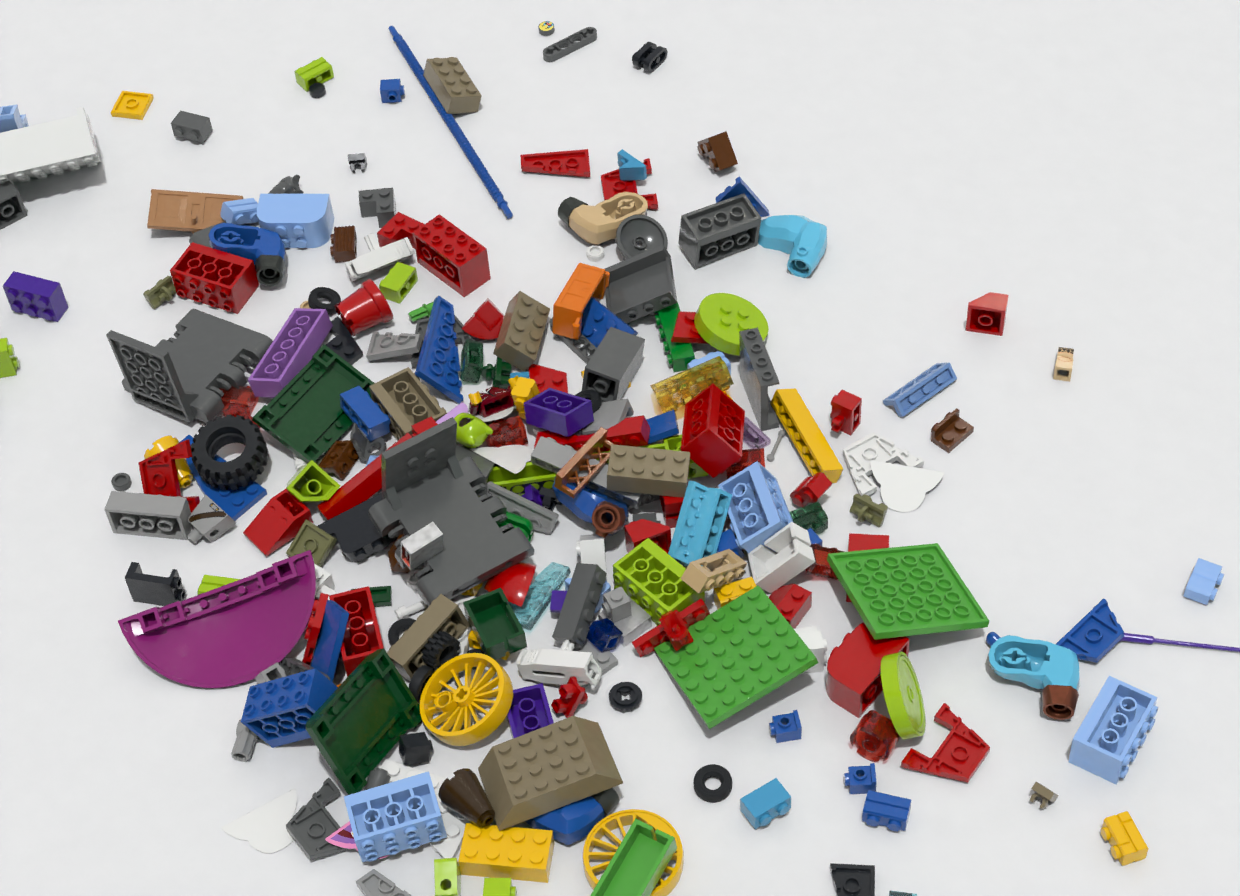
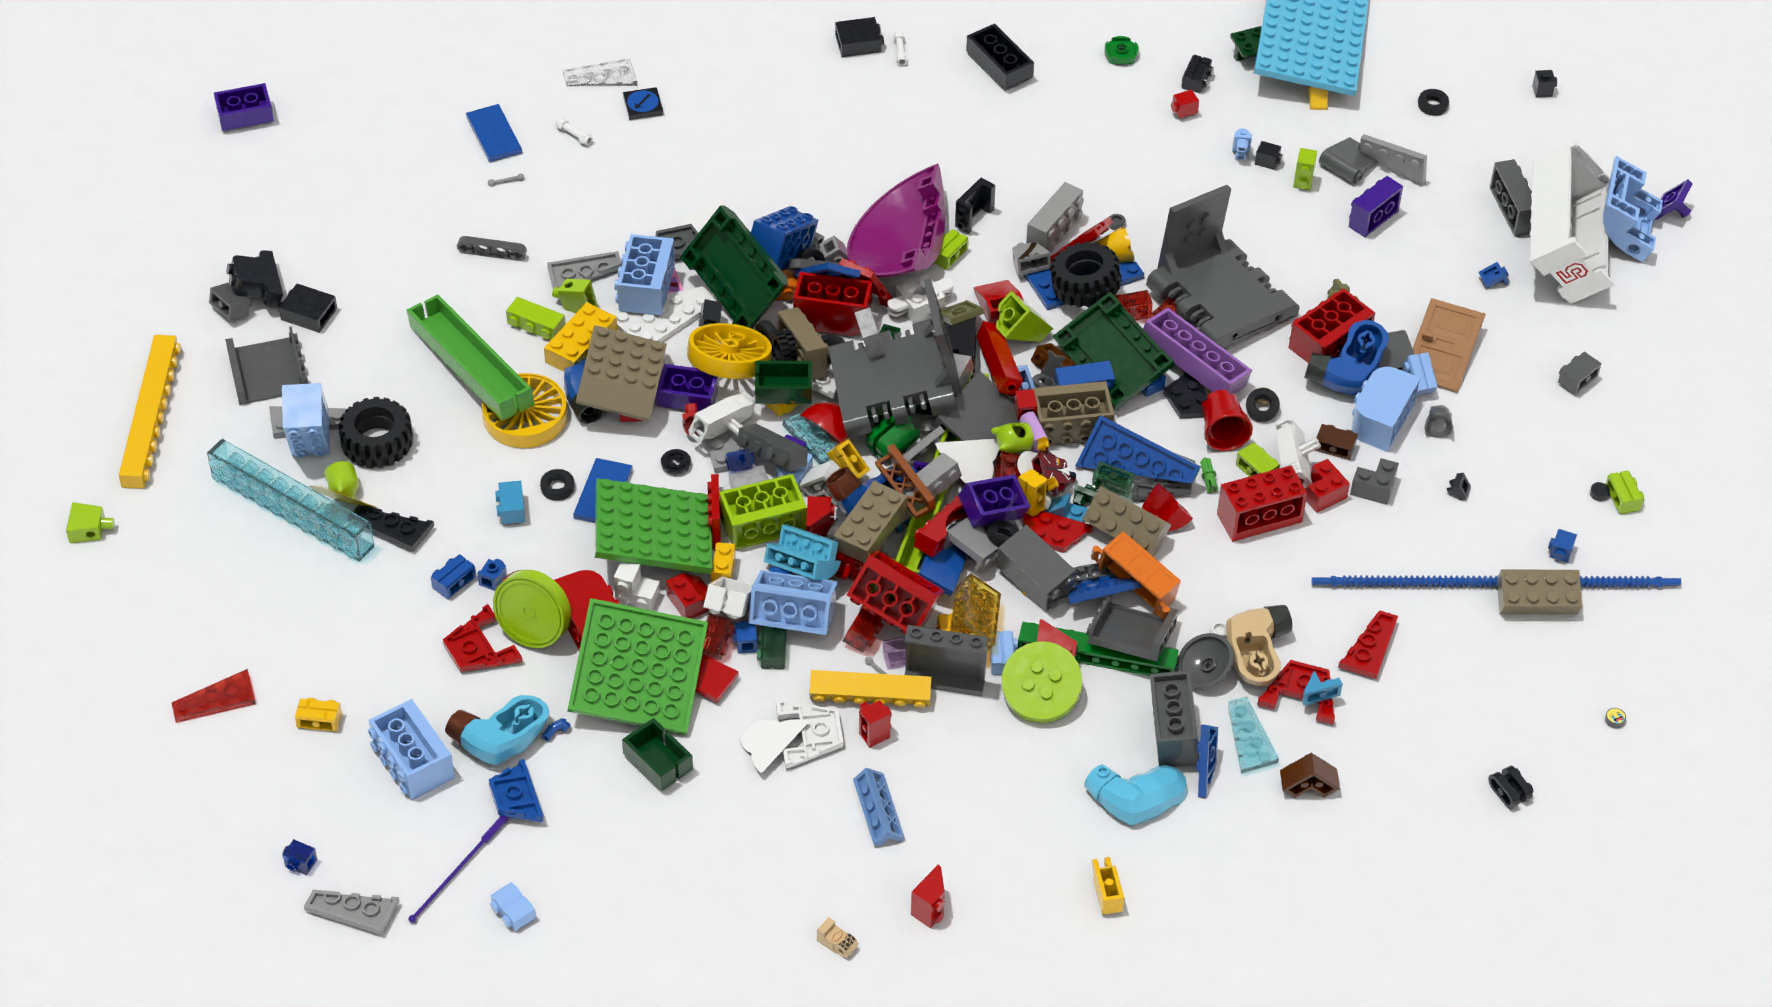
camera: 110 degrees right, 0 degrees up
(90, 207) = (1493, 275): none -> blue bracket
(132, 105) = (1649, 344): yellow tile -> none
(377, 778) = (689, 280): dark grey brick -> none
(392, 345) = (1173, 431): light grey wing -> none
(467, 797) = (630, 318): dark brown cone -> none
(560, 547) = (847, 456): none -> yellow brick
(585, 36) = (1572, 728): dark grey beam -> none
(617, 604) = (756, 469): light grey brick -> none
(675, 629) = (696, 489): red hips -> none
(695, 198) = (1250, 738): none -> clear light blue wing
(696, 742) = (603, 470): none -> blue tile
(716, 571) = (736, 548): tan brick -> none
(786, 727) = (576, 544): blue brick -> none
(810, 489) = (799, 657): red brick -> none
(868, 510) = (749, 702): olive hips -> none
(898, 225) = (1107, 887): none -> yellow hinge
(950, 431) = (809, 806): reddish brown bracket -> none
(978, 549) = (653, 758): none -> dark green piece
(1043, 792) = (395, 683): dark tan tile -> none

